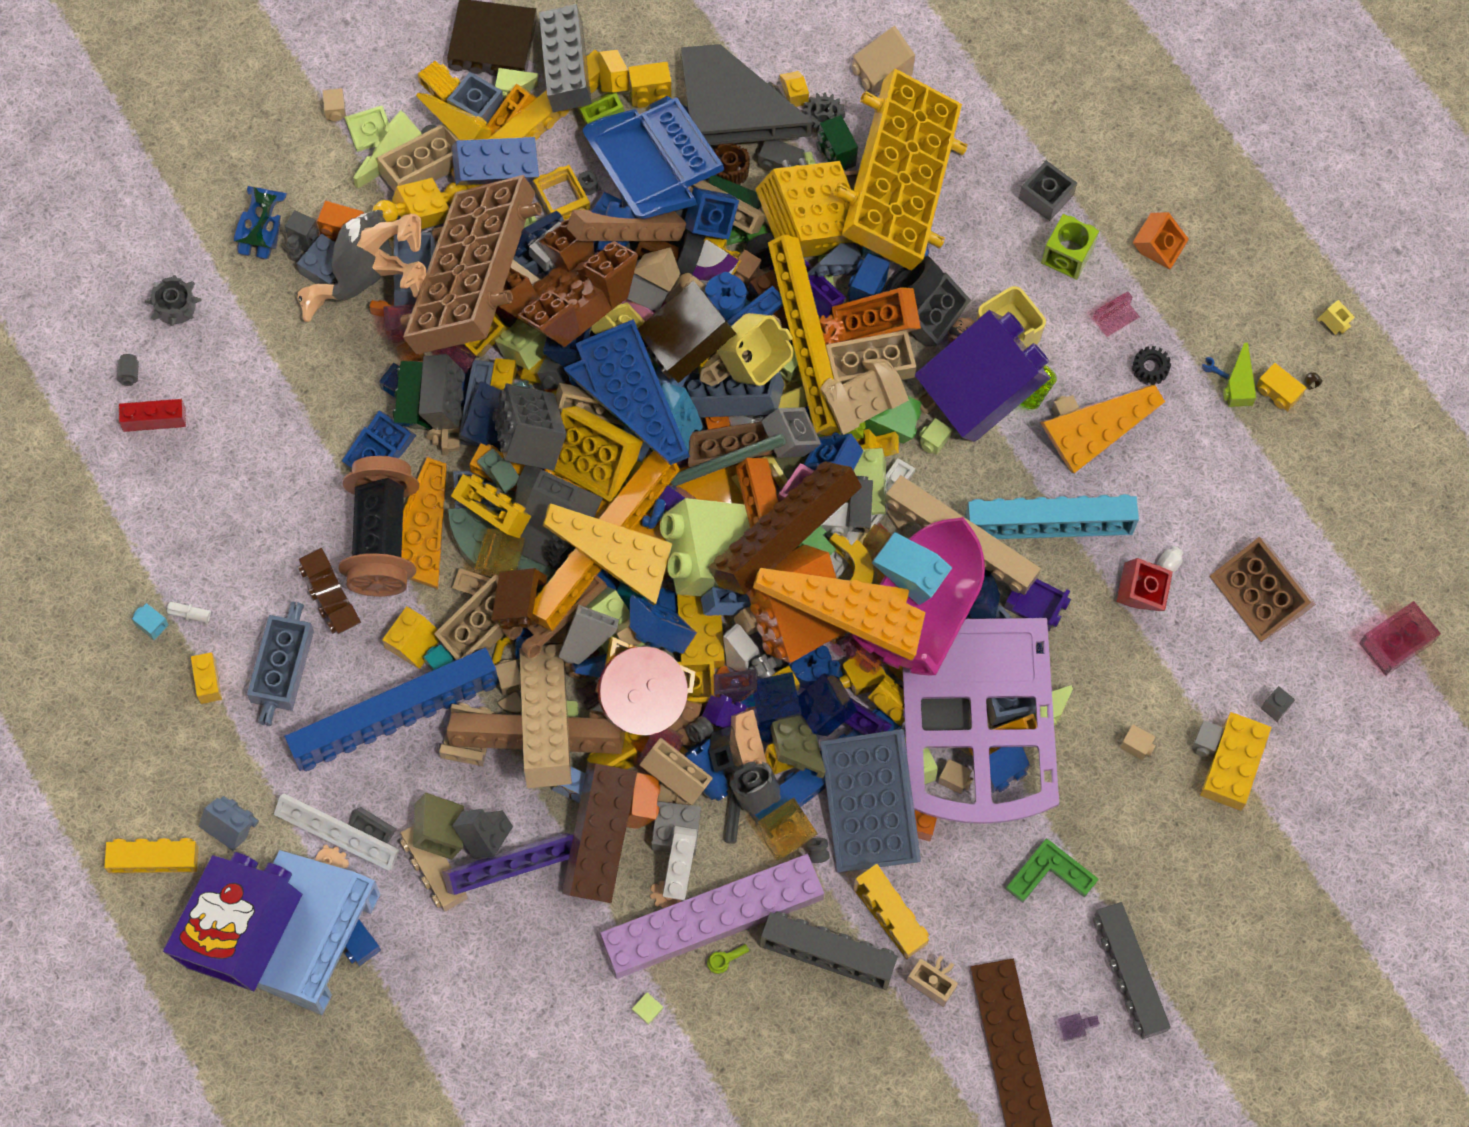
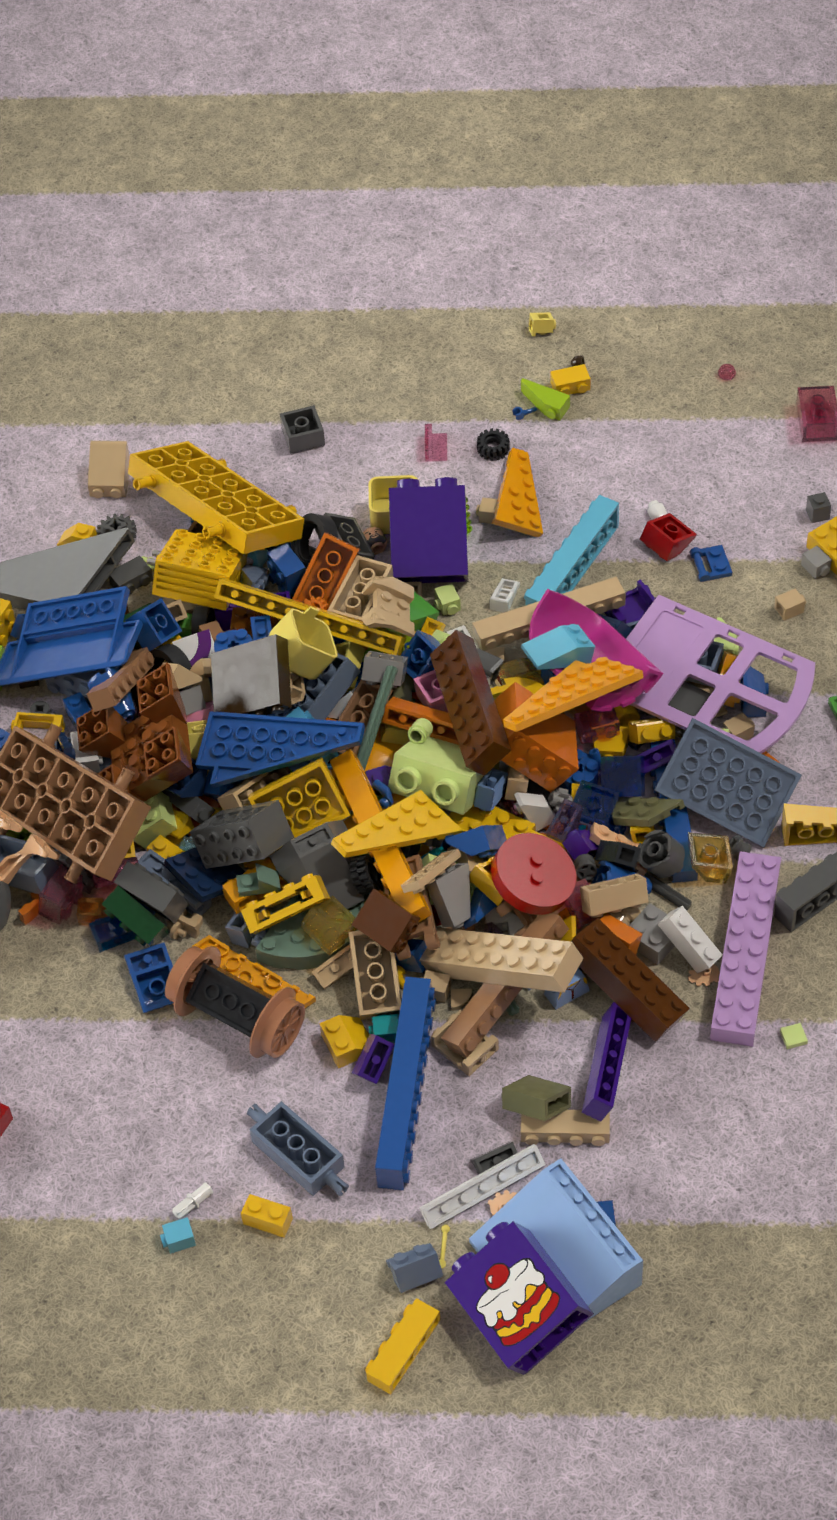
camera: 50 degrees left, 15 degrees down
(248, 842) = (445, 1229): none -> light yellow hinge
(328, 592) = (264, 1081): reddish brown brick -> none
(399, 670) = (373, 1058): none -> dark purple brick
(482, 831) = (566, 1066): dark grey brick -> none
(585, 603) = (430, 871): none -> tan plate
(719, 961) = (786, 965): lime plate -> none
(737, 504) = (420, 731): none -> yellowish green brick
(837, 142) = (152, 530): dark green brick -> none
(965, 485) = (503, 605): none -> white slope
(1066, 260) = (360, 438): lime brick -> none
(1148, 648) = (716, 560): none -> blue plate
(1161, 239) = (395, 387): orange slope -> none
(1262, 589) = (721, 470): medium nougat slope -> none
(1401, 518) = (727, 372): none -> clear pink plate

